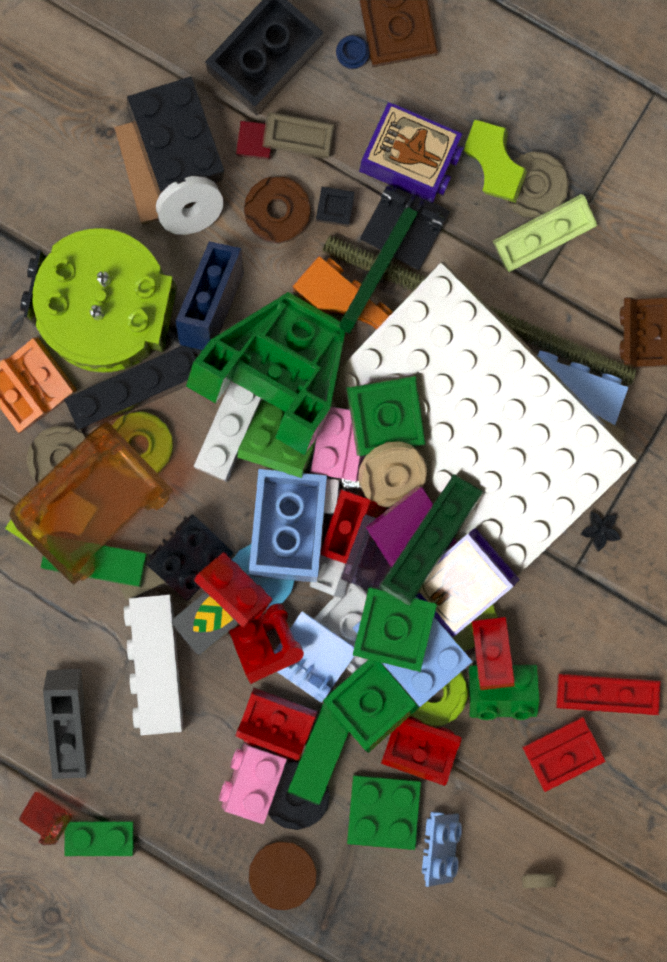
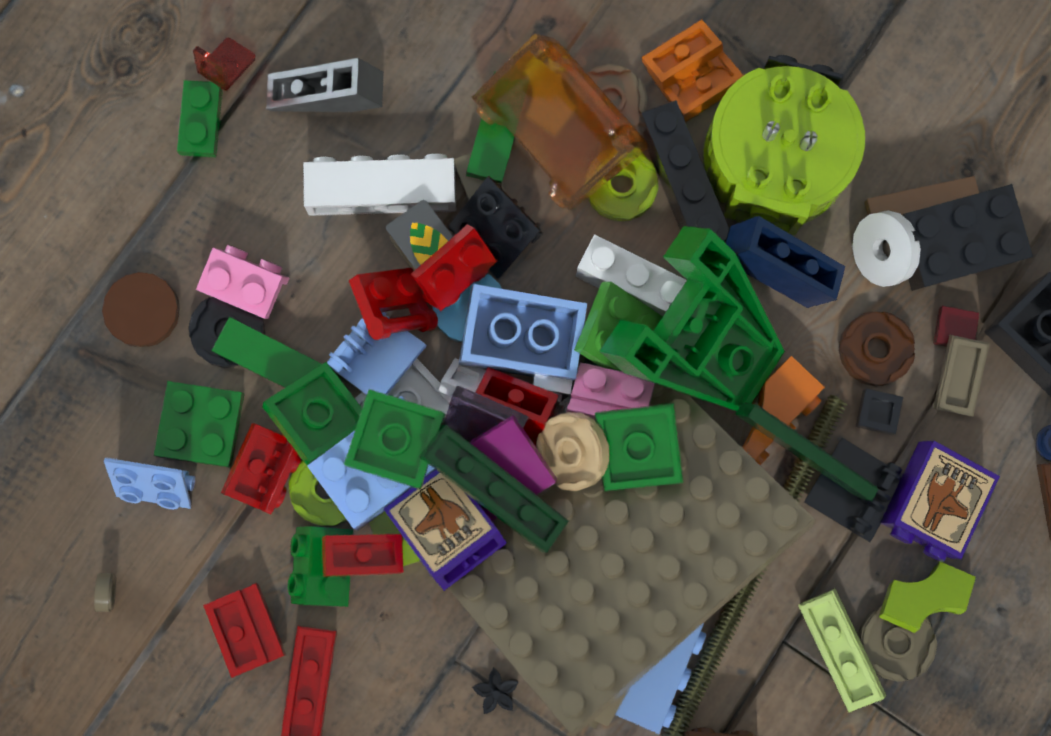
camera: 90 degrees right, 5 degrees down
(276, 724) = (304, 310): red bracket -> none

